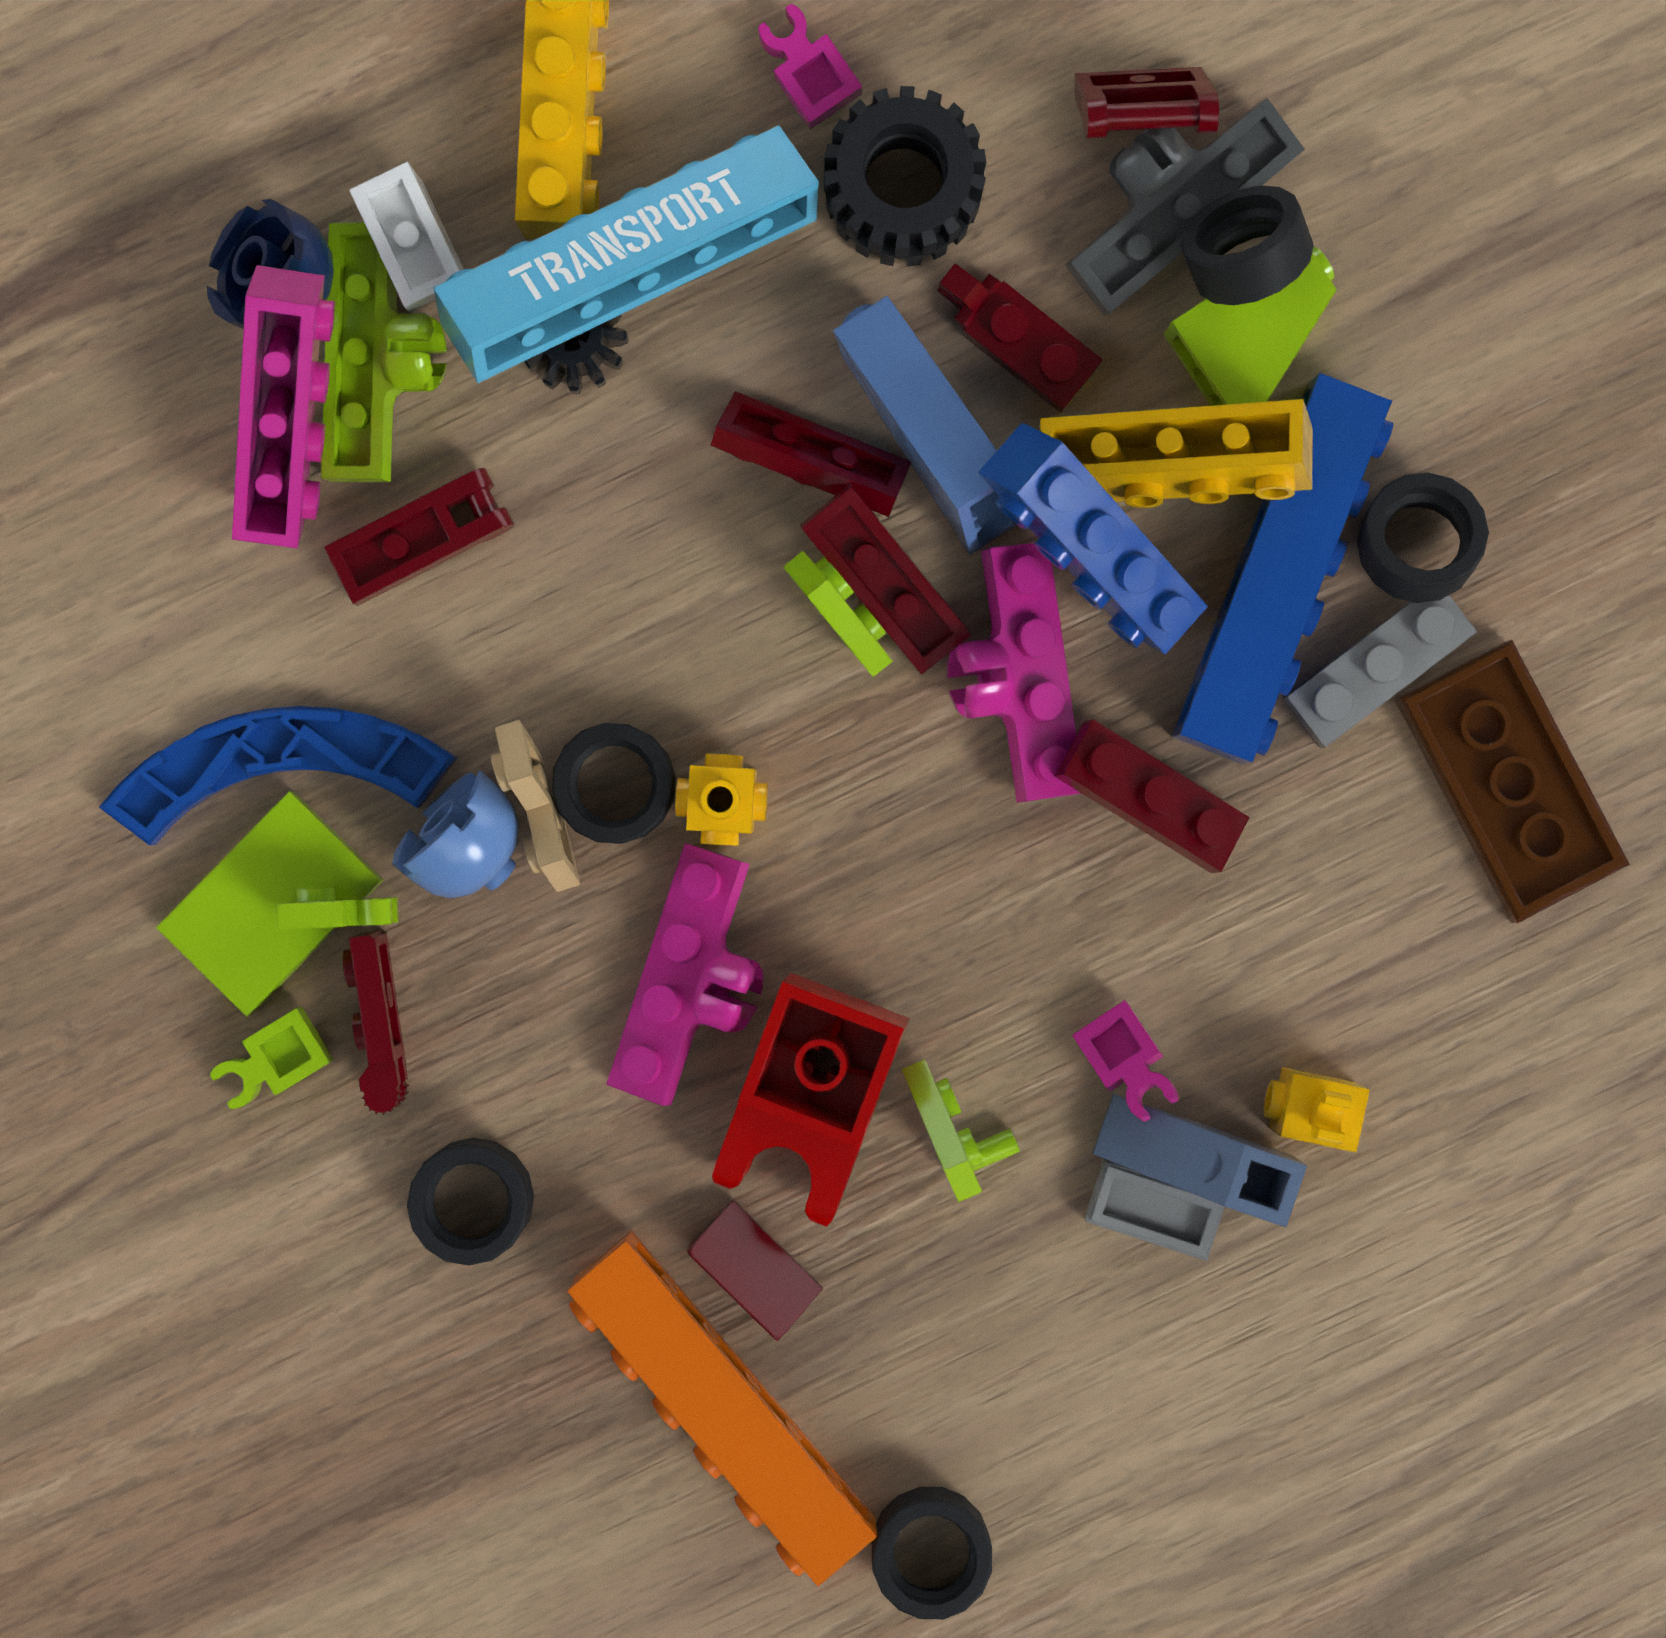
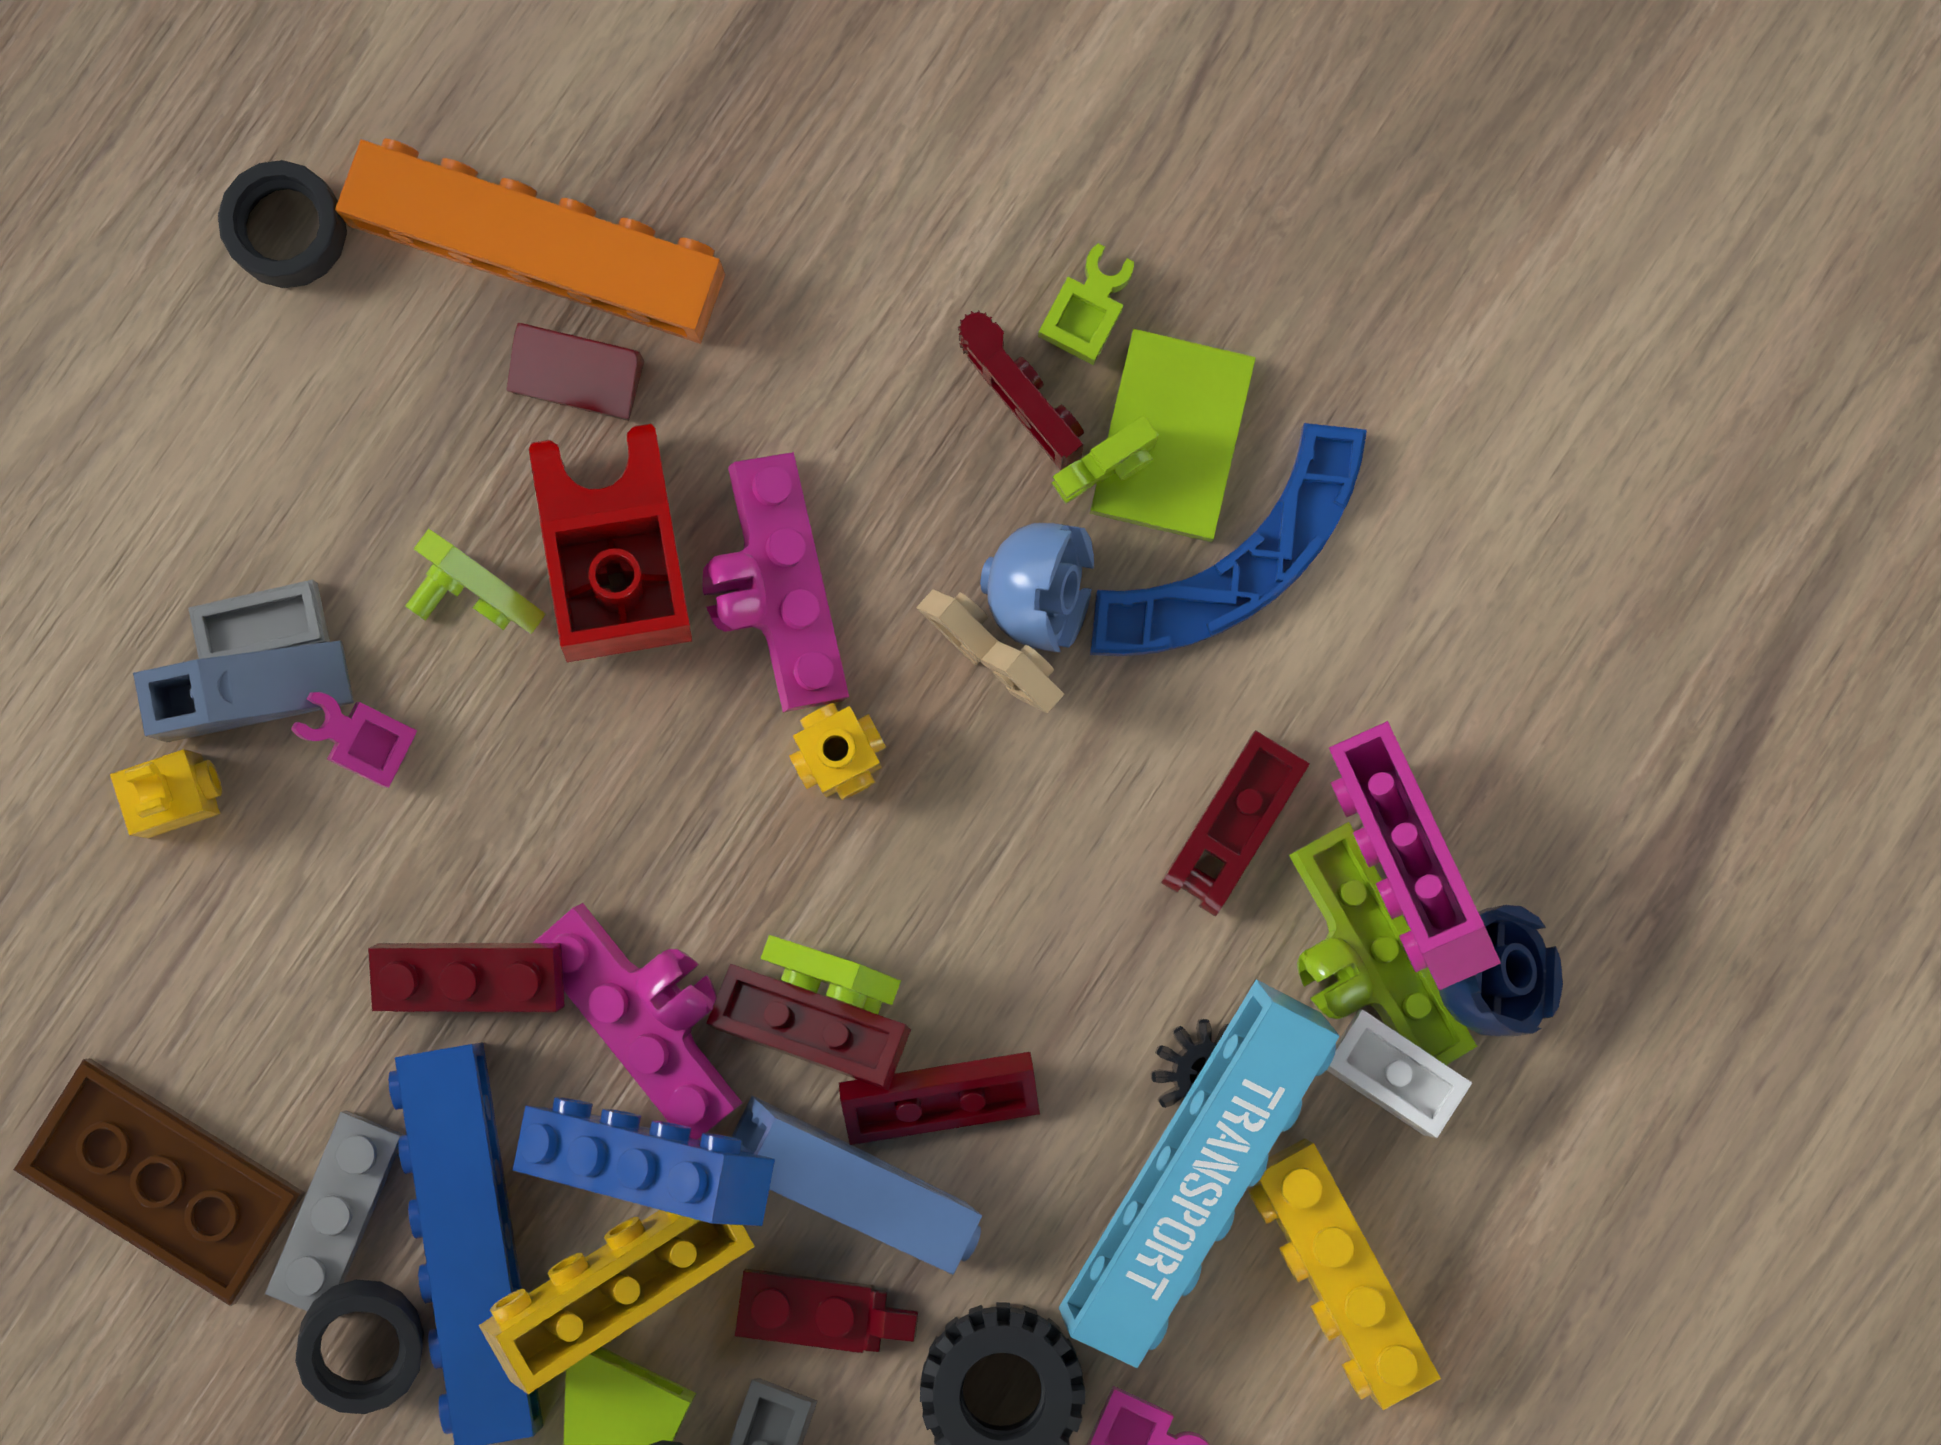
camera: 150 degrees right, 5 degrees down
(444, 1242) = (849, 239): black tyre -> none
(566, 776) = (933, 663): black tyre -> none

